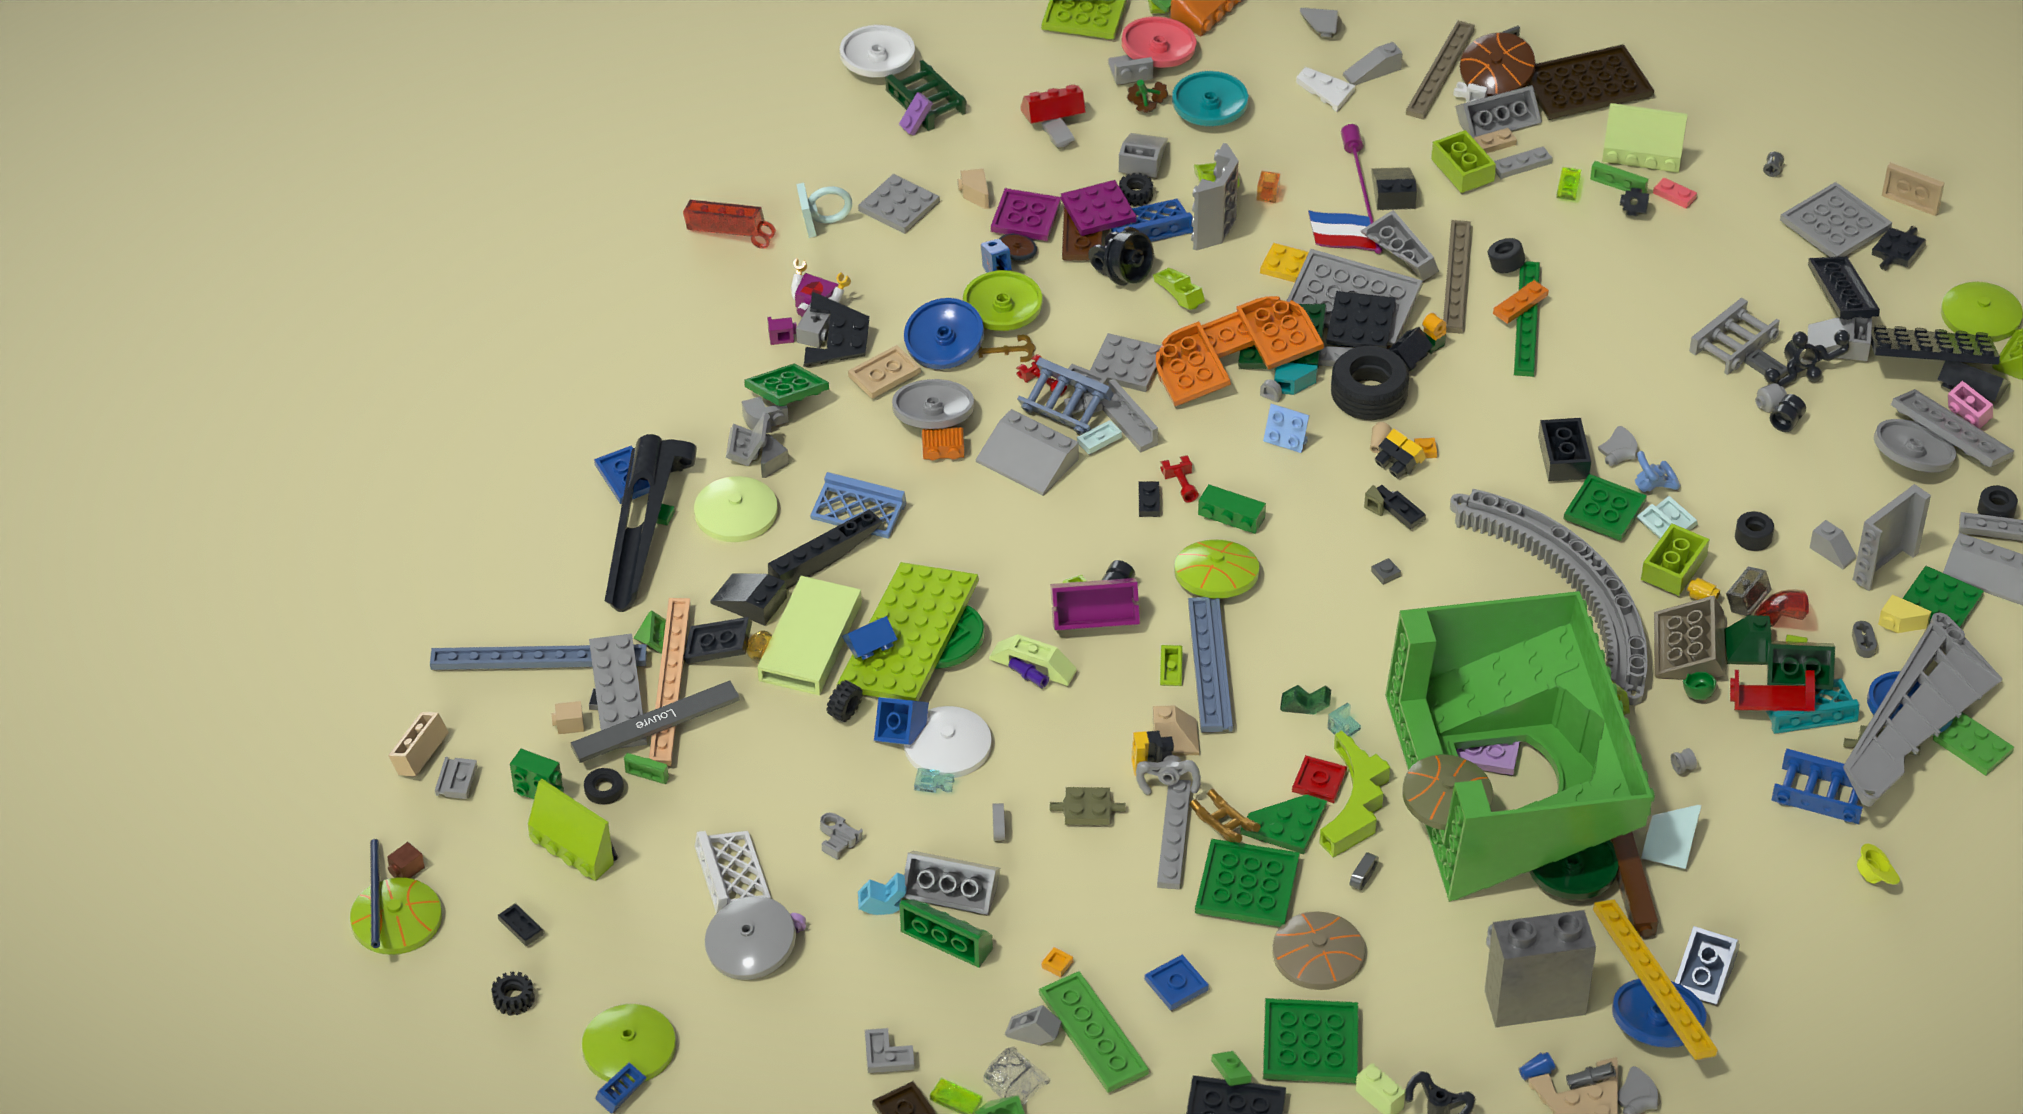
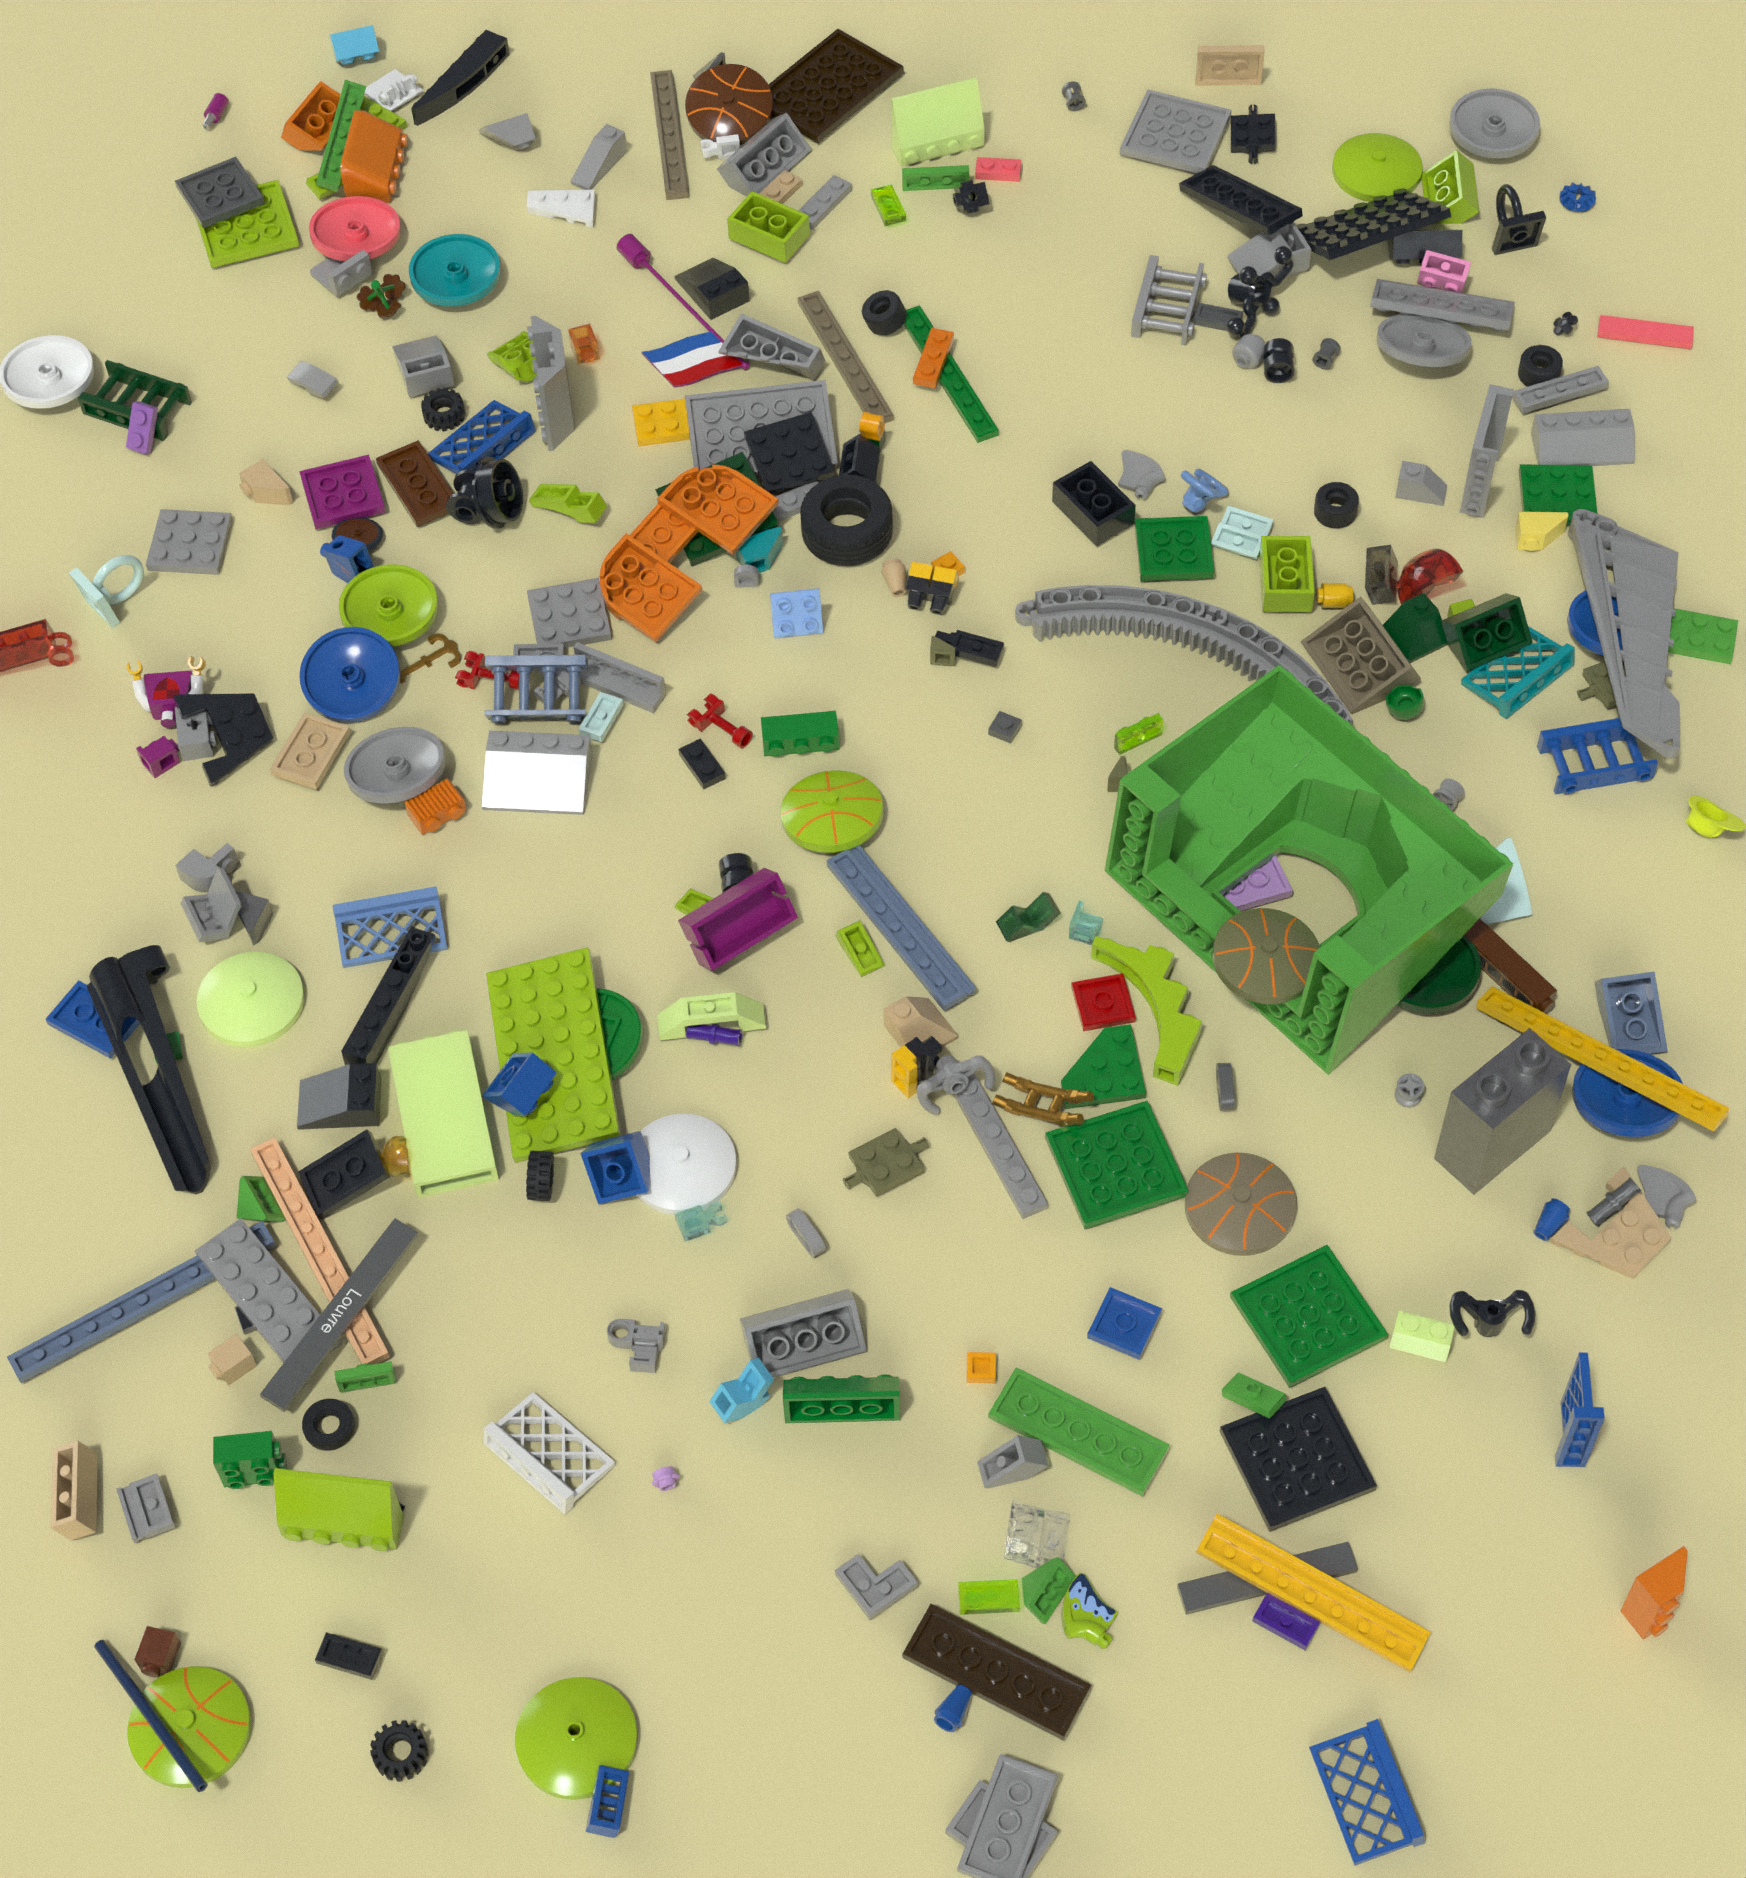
camera: 30 degrees left, 10 degrees up
(750, 938) = (645, 1547): light grey dish -> none
(786, 384) = (213, 820): green plate -> none
(1053, 104) = (289, 350): red slope -> none
(1098, 207) = (419, 449): magenta plate -> none
(1773, 696) = (1488, 678): red panel -> none
(1831, 424) = (1324, 357): none -> dark grey bush
(1868, 639) = (1521, 571): dark grey beam -> none

